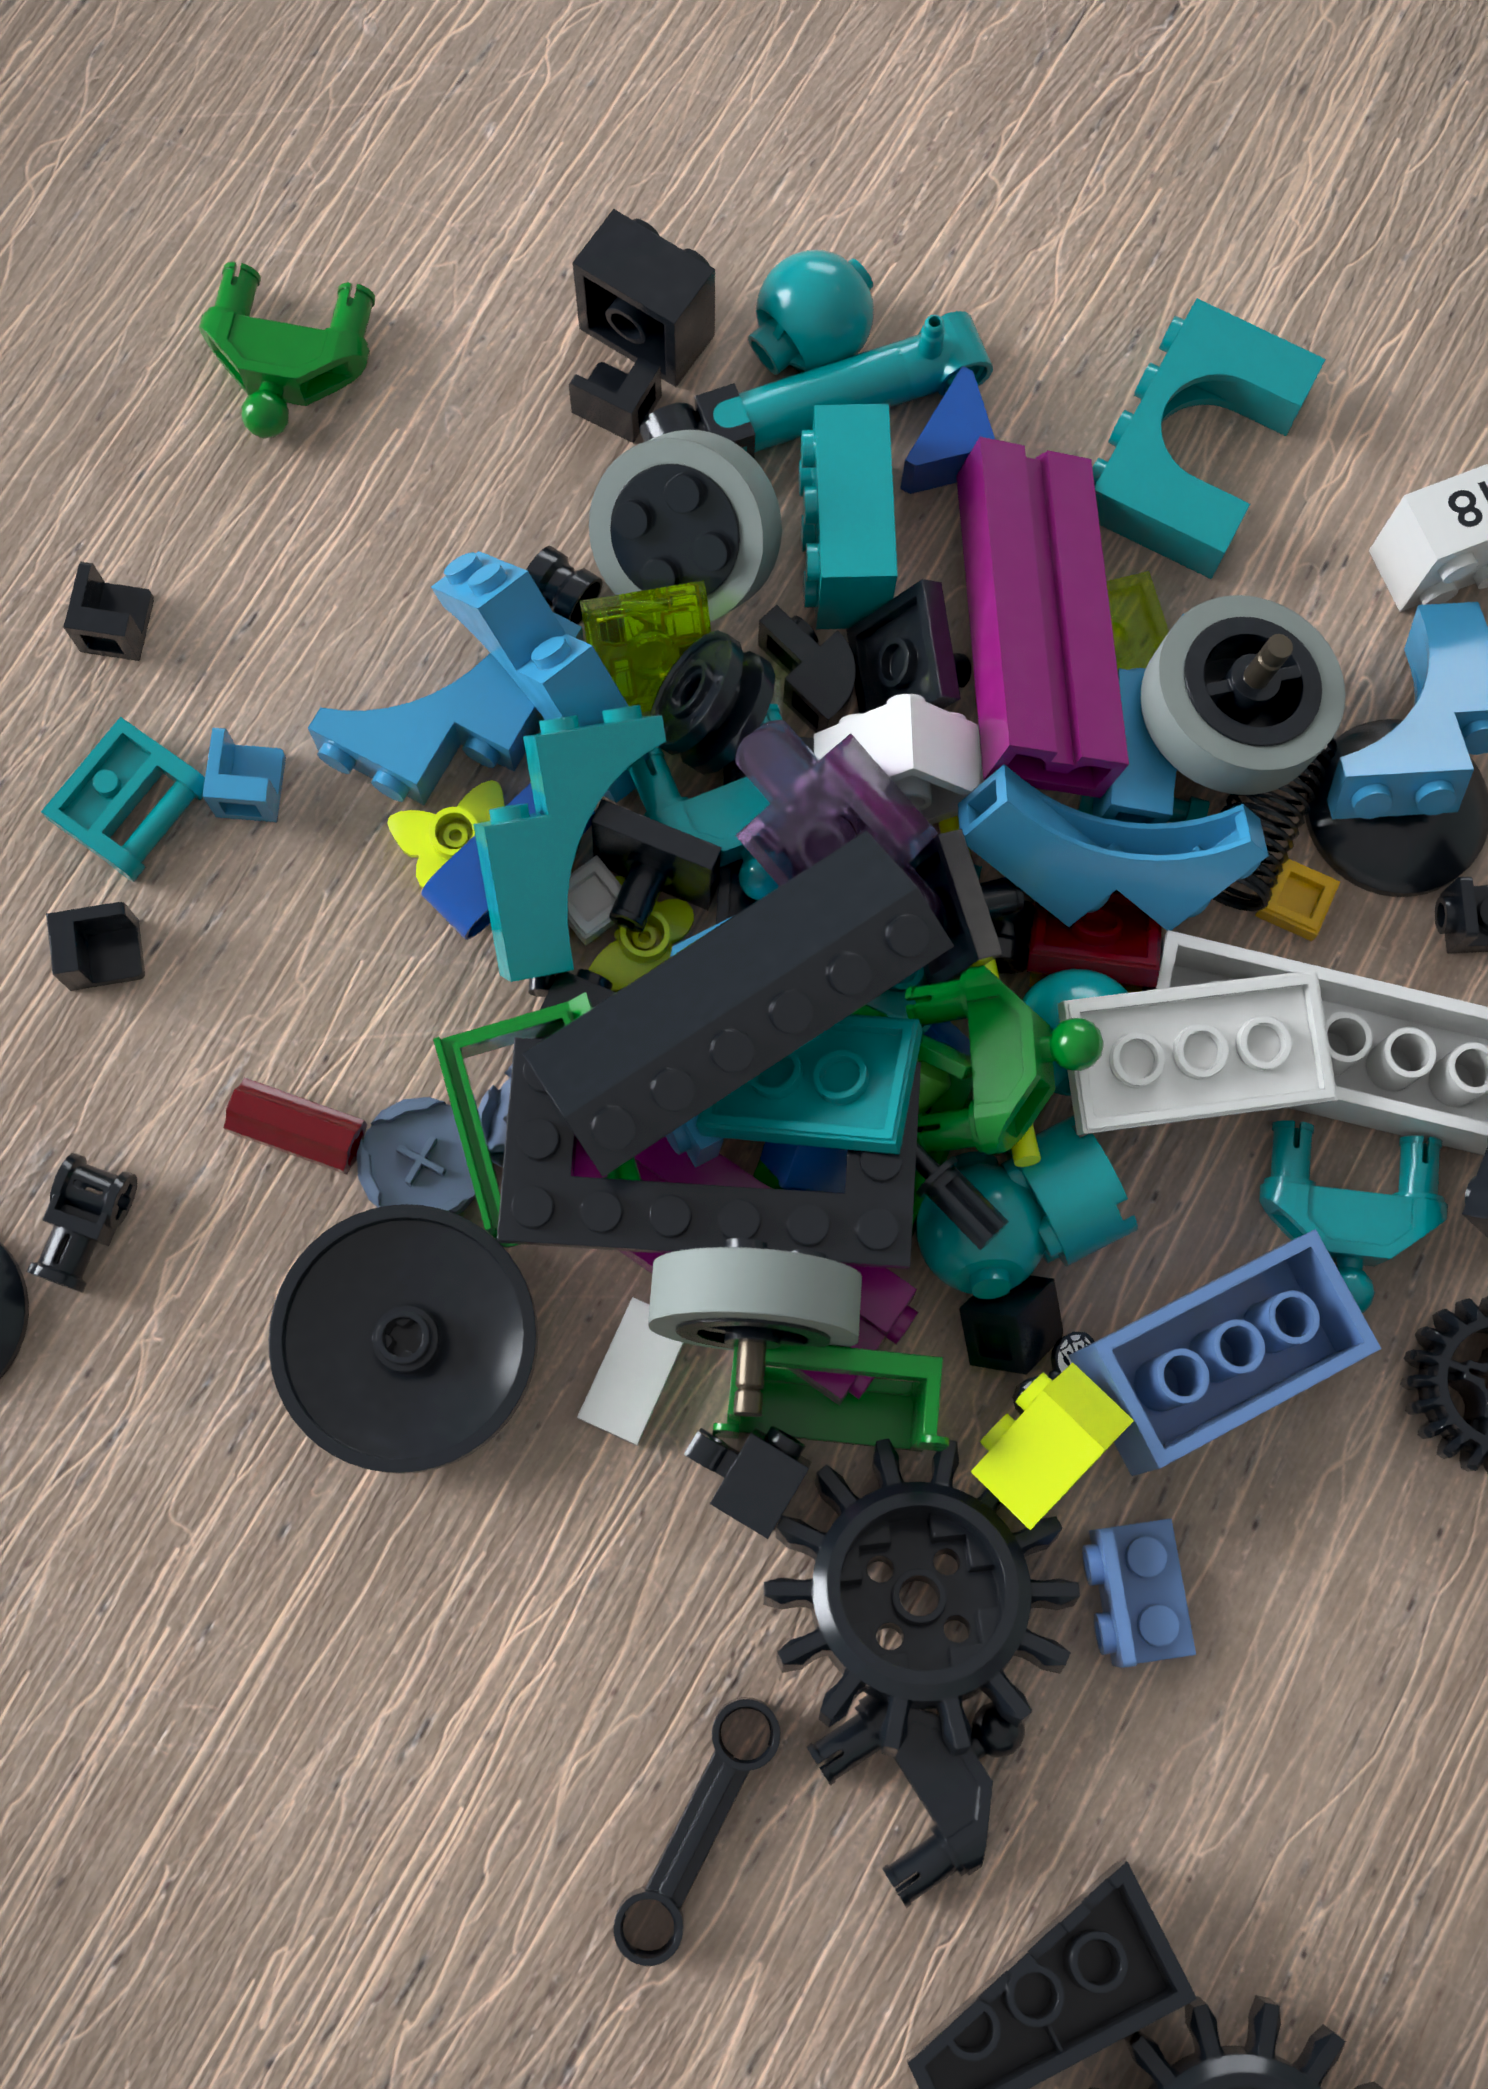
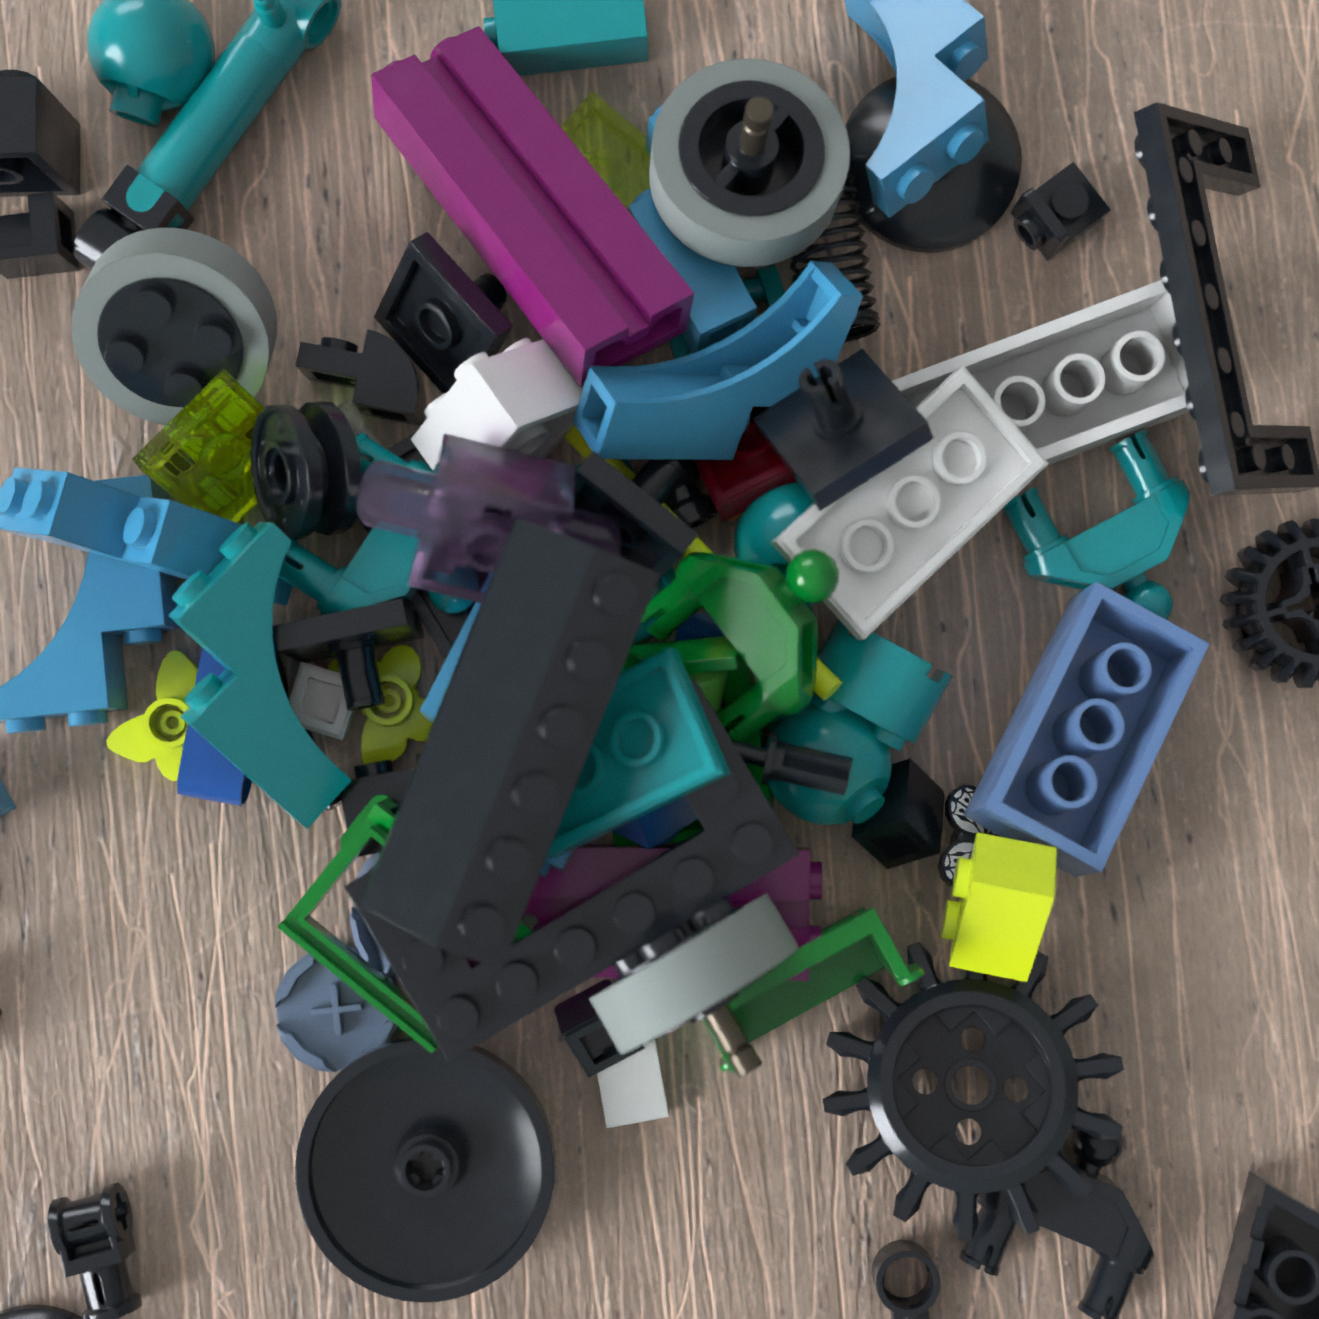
camera: 25 degrees left, 10 degrees up
(294, 1125) = (214, 1054): dark red axle -> none
(562, 585) = (103, 447): black wheel -> none
(623, 1328) = (586, 1032): none -> black slope
(757, 1478) = (784, 1085): black brick -> none
(847, 513) = (303, 217): teal brick -> none
(947, 437) = (343, 85): blue slope -> none
(1139, 1593) = (1137, 957): medium blue bracket -> none
(1181, 949) = (842, 427): none -> black tile
(1300, 900) = (902, 297): yellow tile -> none

